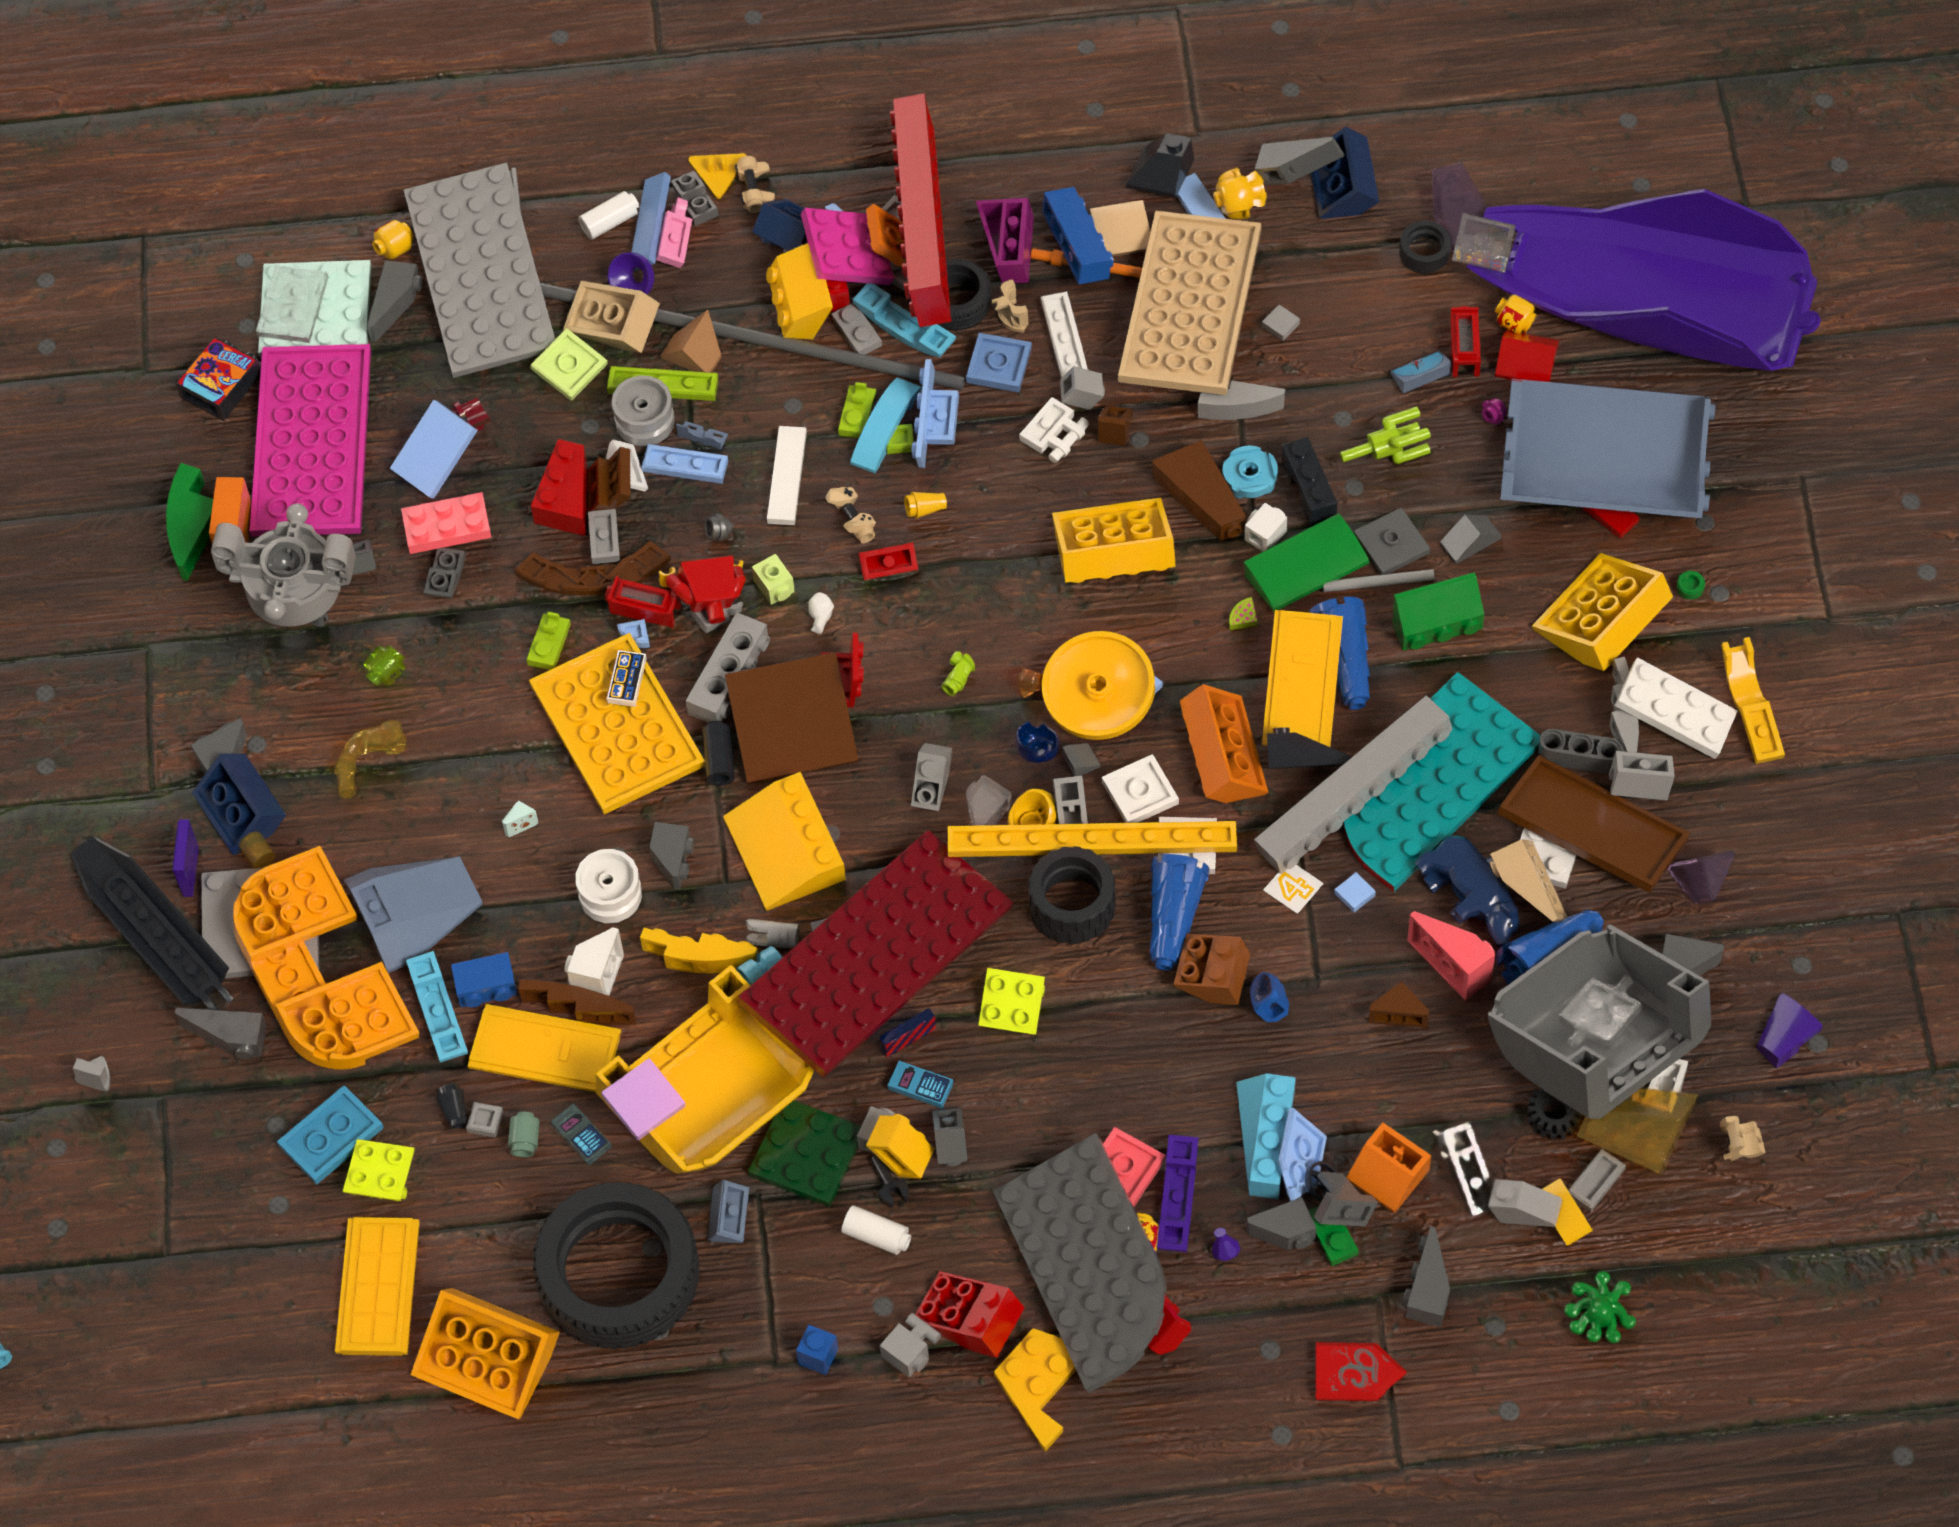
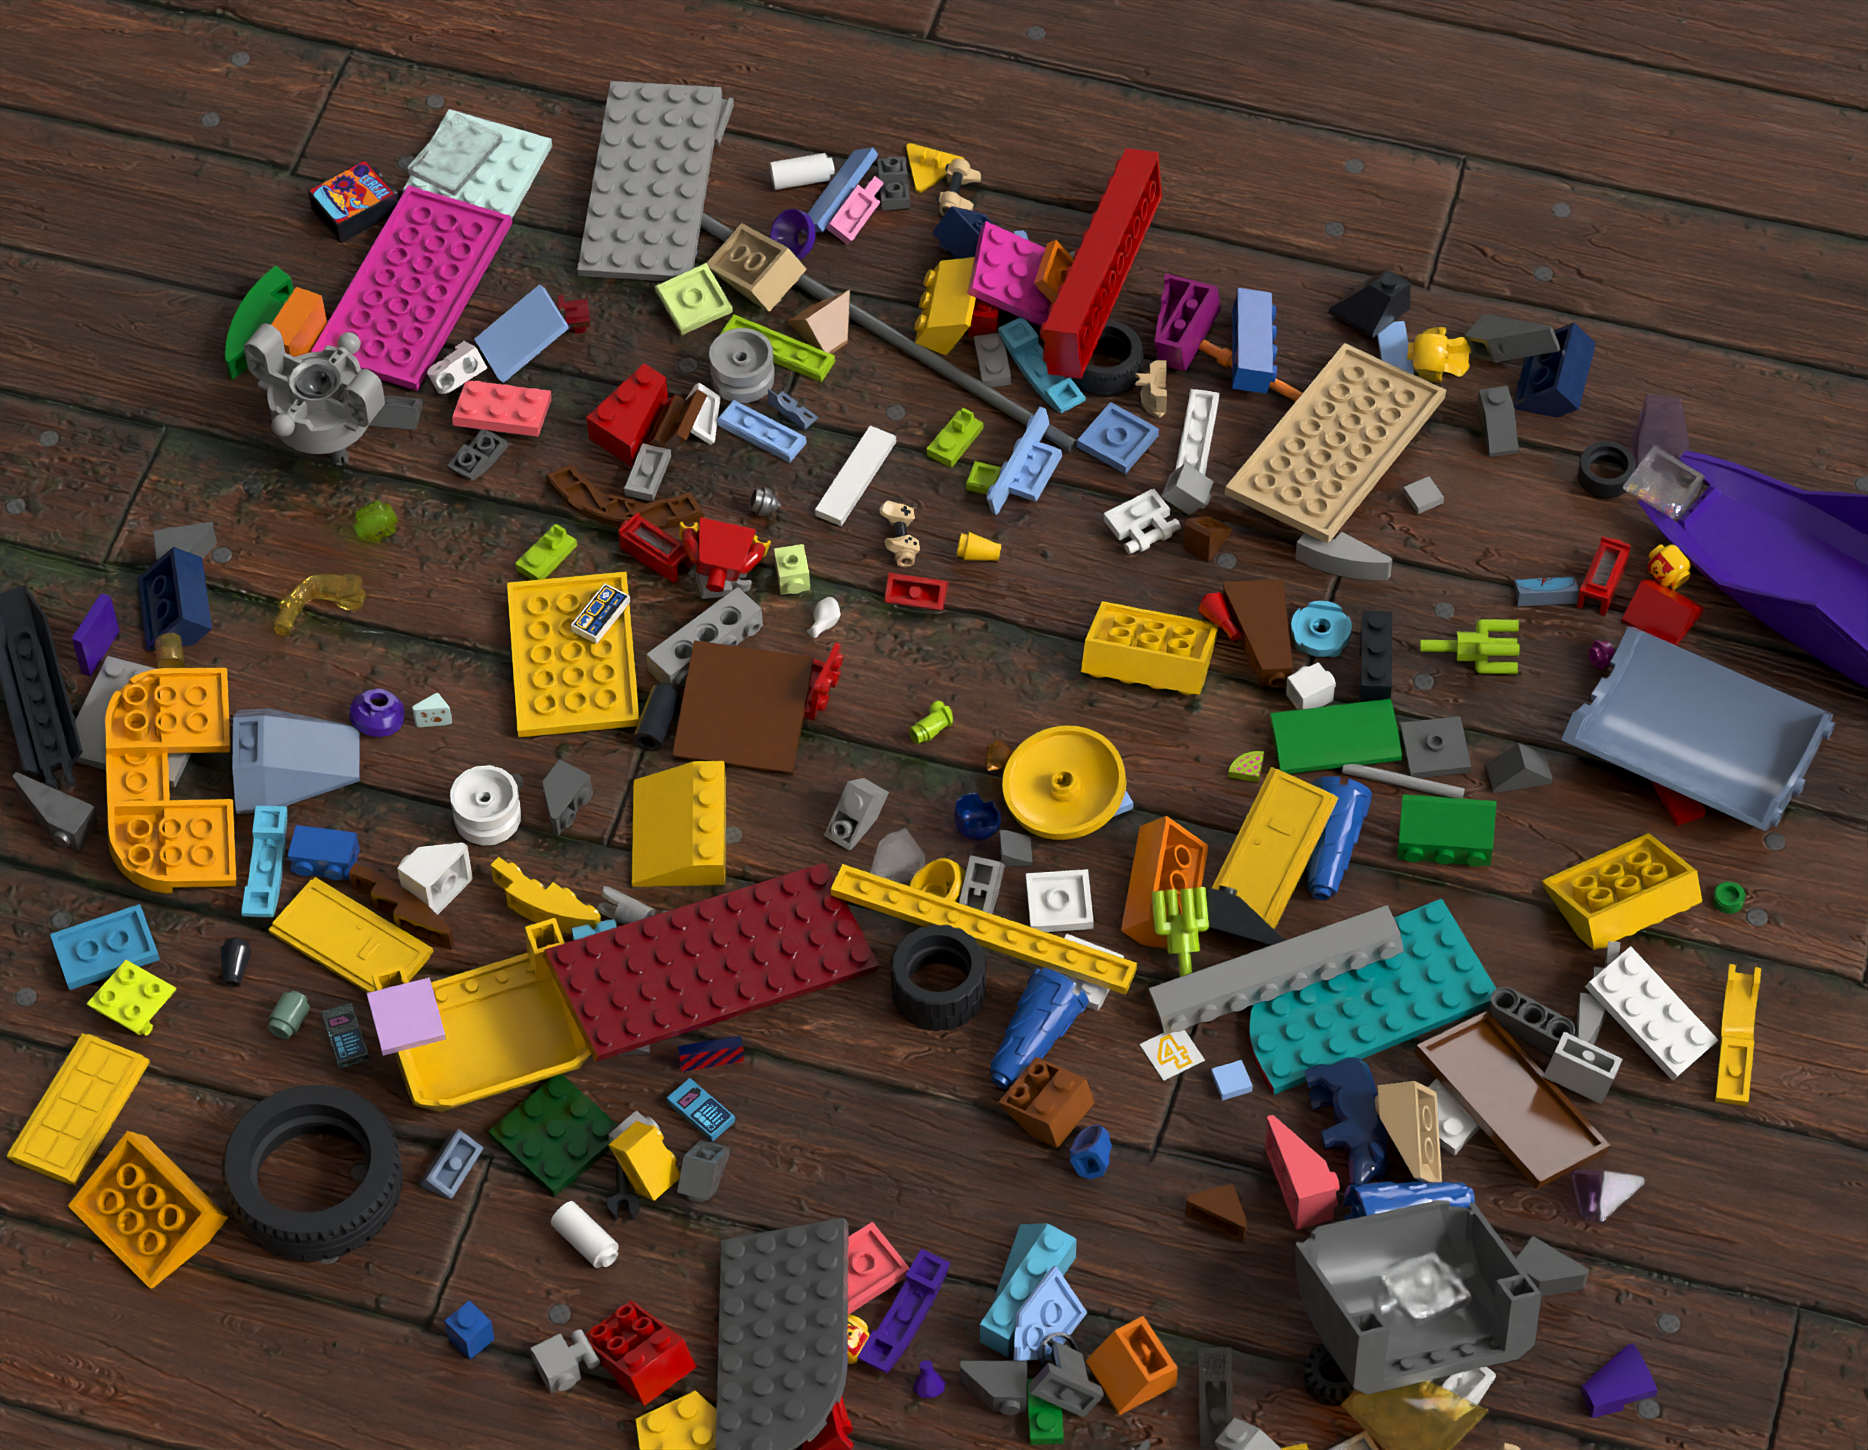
camera: 20 degrees right, 5 degrees down
(389, 500) = (456, 368): none -> white leg
(392, 239) = (581, 126): yellow head -> none
(393, 296) = (556, 179): dark grey slope -> none
(469, 845) = (374, 719): none -> dark purple piece
(484, 1119) = (260, 987): light grey tile -> none
(637, 630) = (636, 575): light blue tile -> none
(883, 423) = (972, 457): medium azure slope -> none
(1011, 1001) = (830, 1060): neon yellow hinge -> none
(1123, 227) = (1303, 349): tan slope -> none
(1155, 487) = (1216, 610): none -> red cone
(1258, 777) = (1181, 928): none -> lime plant
(1315, 235) = (1497, 421): none -> dark grey slope

